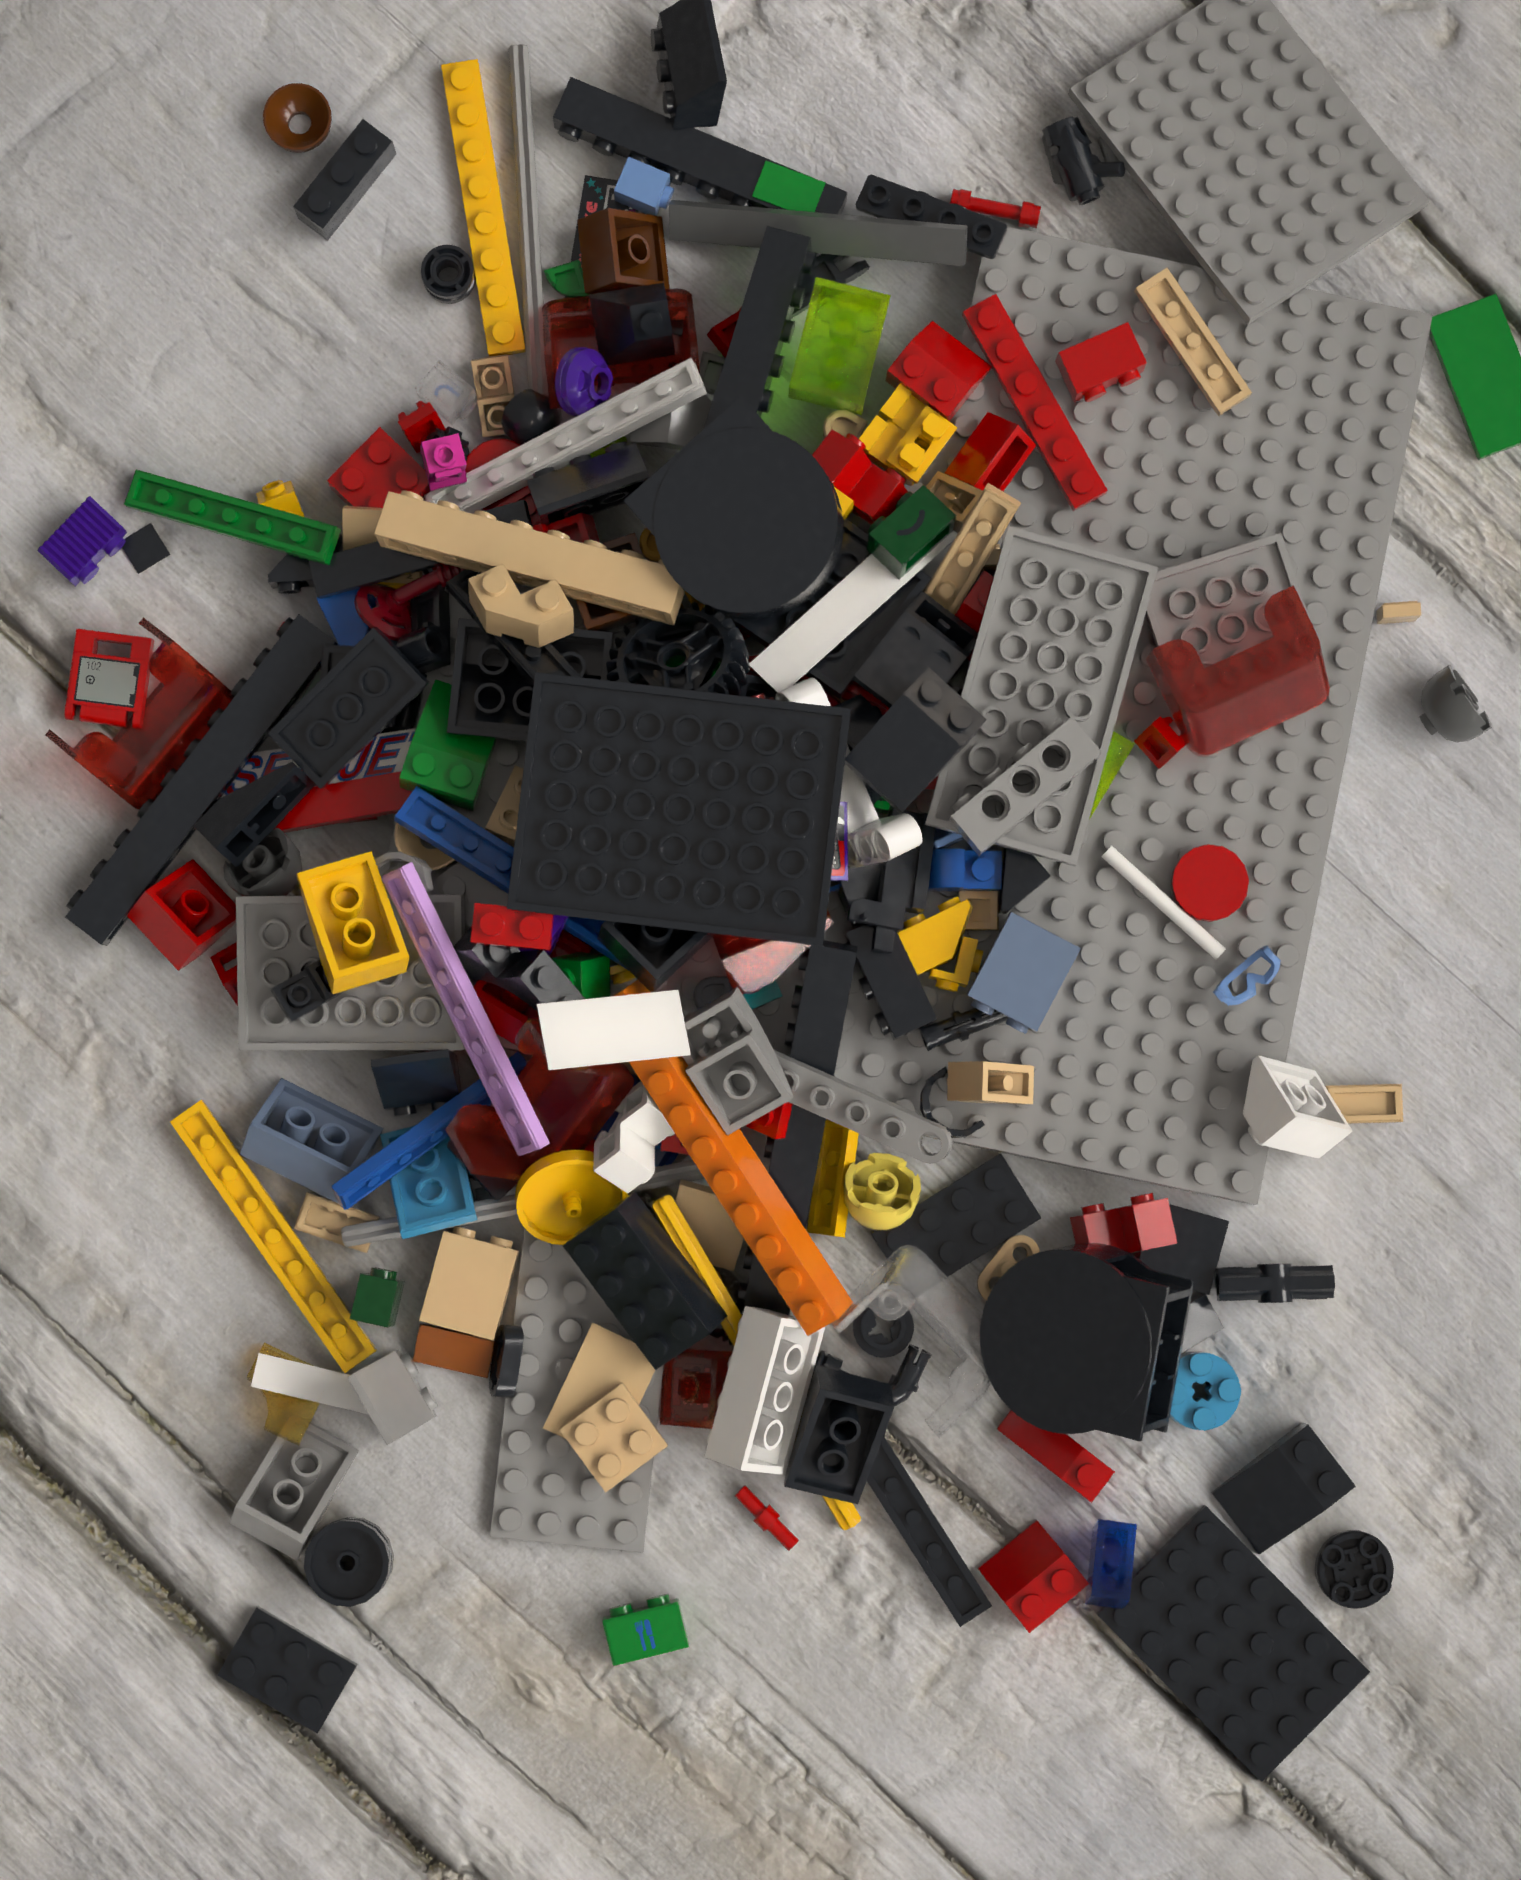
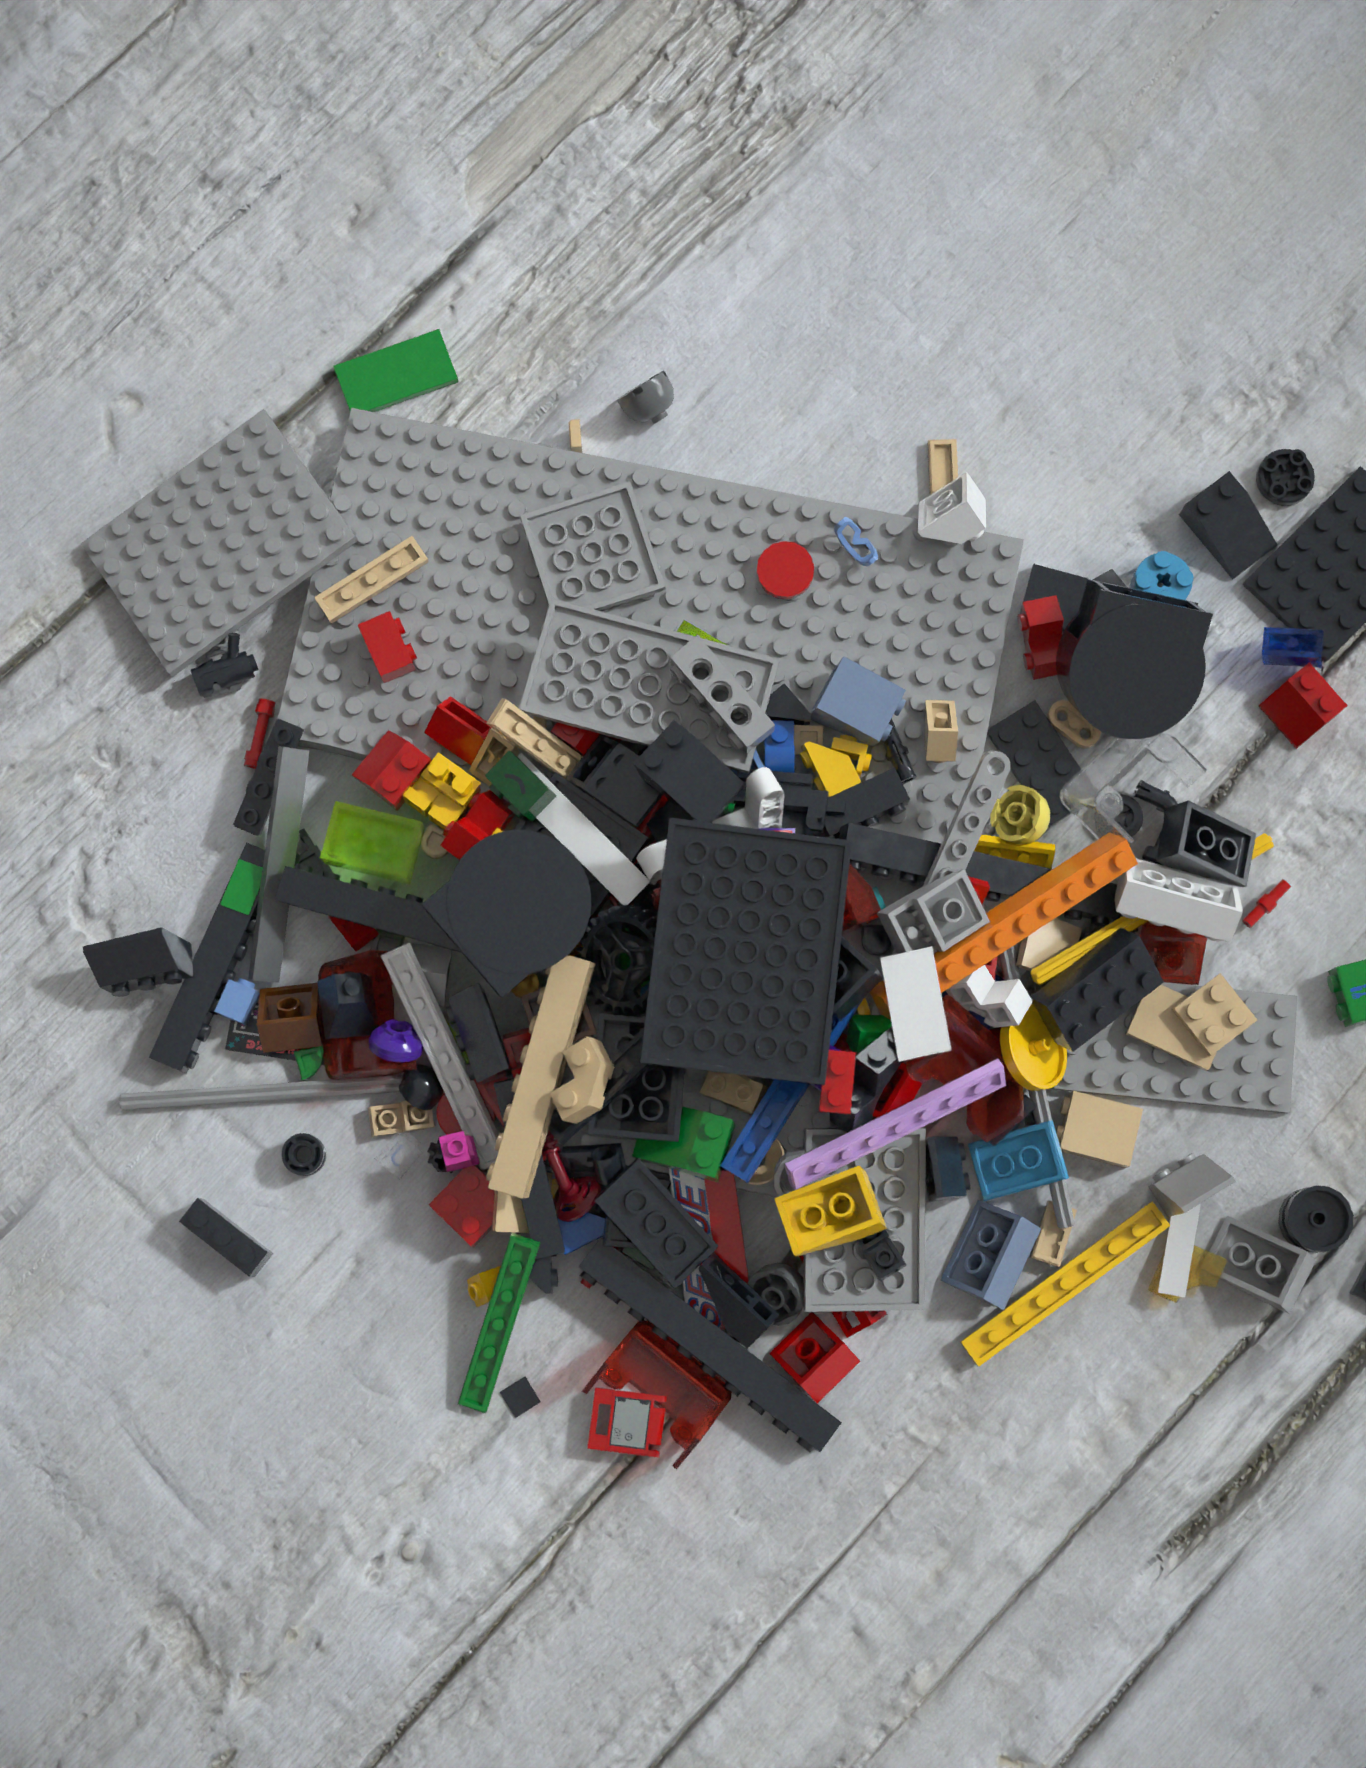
camera: 85 degrees left, 5 degrees down
(83, 542) = (516, 1444): dark purple brick -> none
(291, 101) = (159, 1276): reddish brown piece -> none
(377, 1297) = (1113, 1198): dark green brick -> none
(411, 1144) = (992, 1169): blue tile -> none
(420, 424) = (424, 1174): red tile -> none
(454, 1350) = (1149, 1142): dark orange slope -> none
(483, 208) = (249, 1128): yellow plate -> none
(506, 1361) = (1157, 1100): black beam -> none
(926, 1111) = (959, 778): black helmet -> none
(926, 1537) = (1279, 782): black plate -> none
(1034, 402) = (416, 698): red plate -> none
(1059, 1455) = (1217, 680): red slope -> none
(1160, 741) = (679, 604): red tile -> none
(1163, 902) = (798, 606): white bar -> none
(1247, 690) = (645, 535): clear red windscreen -> none
(1274, 1283) = (1078, 530): black piece -> none

